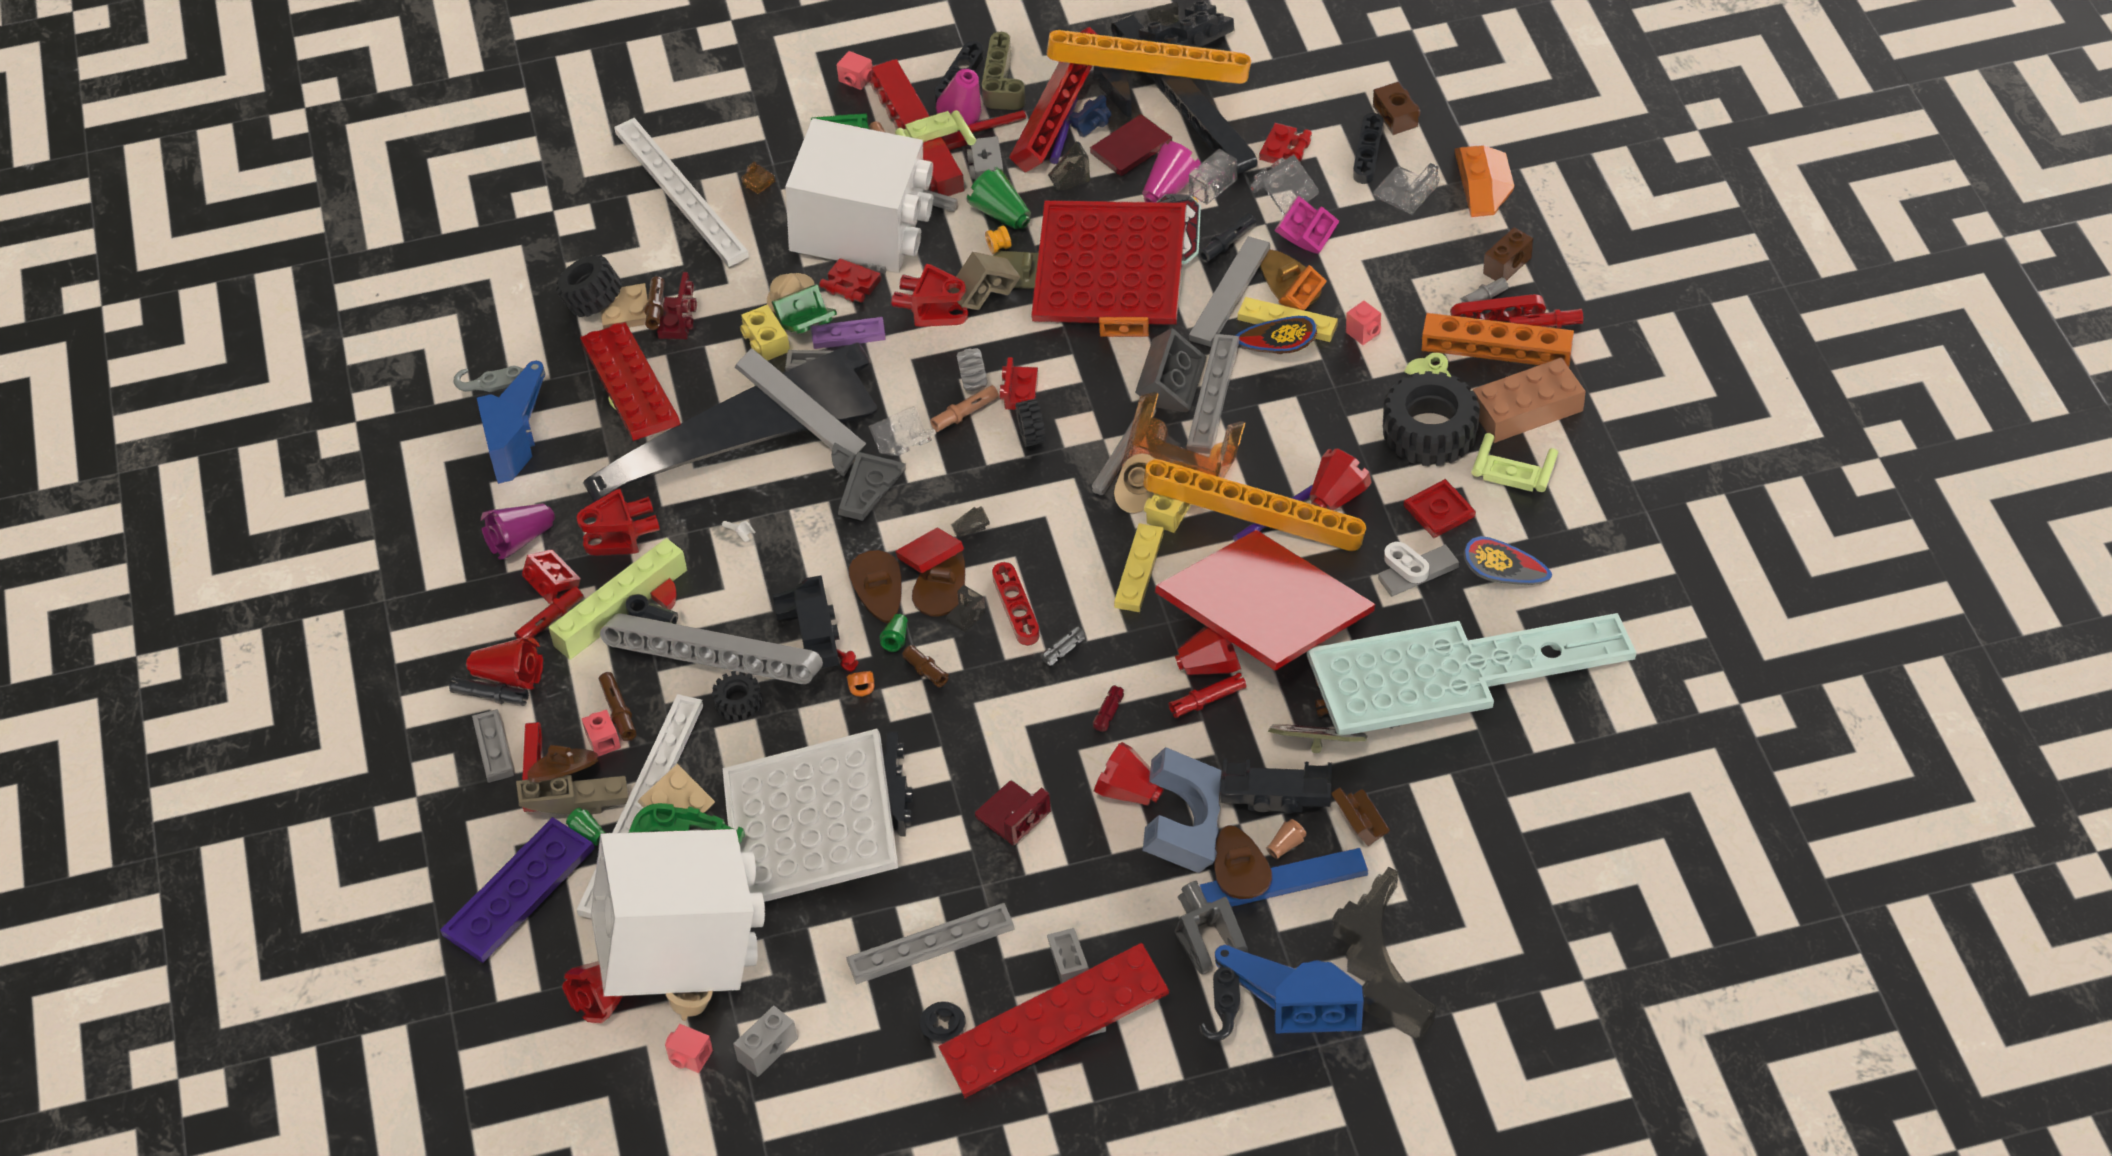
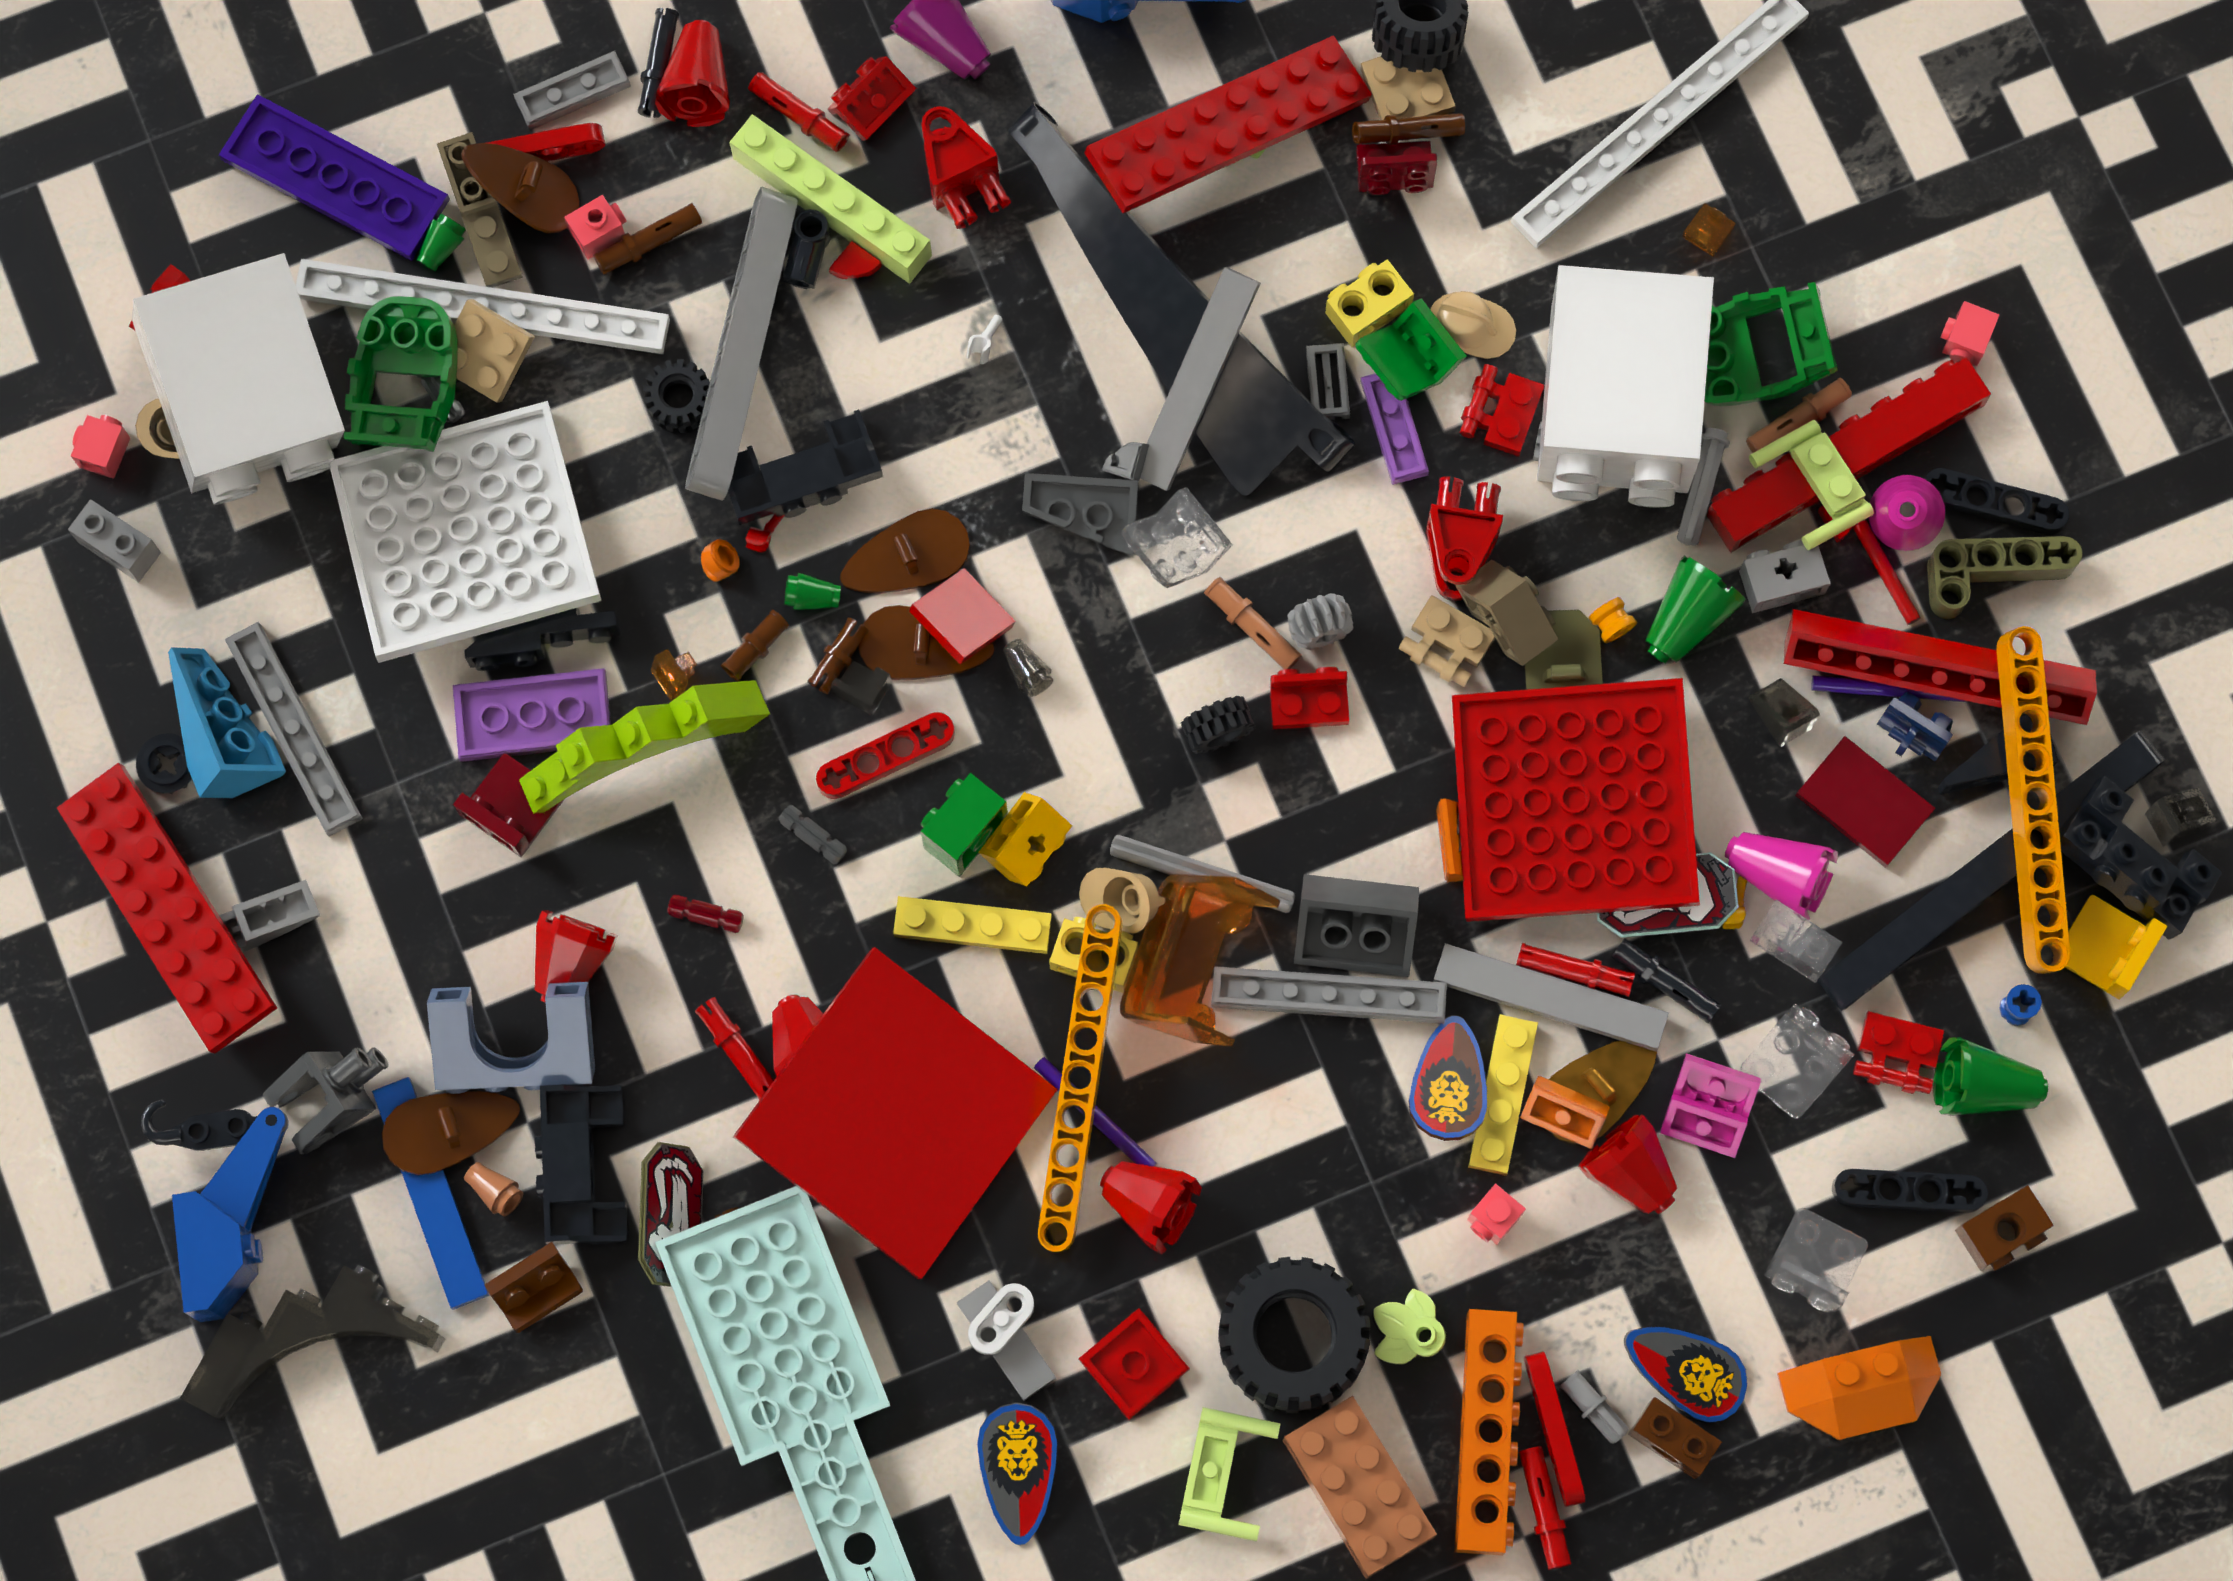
camera: 80 degrees right, 25 degrees up
(936, 711) = (673, 672): none -> clear orange tile
(942, 621) = (838, 655): none -> reddish brown pin
(943, 981) = (219, 738): none -> dark azure wedge
(948, 799) = (527, 712): none -> medium lavender tile
(989, 316) = (1452, 631): none -> tan plate
(990, 725) = (640, 734): none -> lime arch
(1074, 553) = (962, 823): none -> green brick
(1088, 526) = (1025, 839): none -> yellow brick
(1217, 271) = (1576, 969): none -> red pin
(1244, 39) = (2110, 946): none -> yellow bracket
(1267, 89) = (2029, 996): none -> blue bush
(1307, 107) = (1984, 1081): none -> green cone
(1339, 257) = (1632, 1166): none -> red cone
(1467, 245) = (1689, 1371): none -> shield

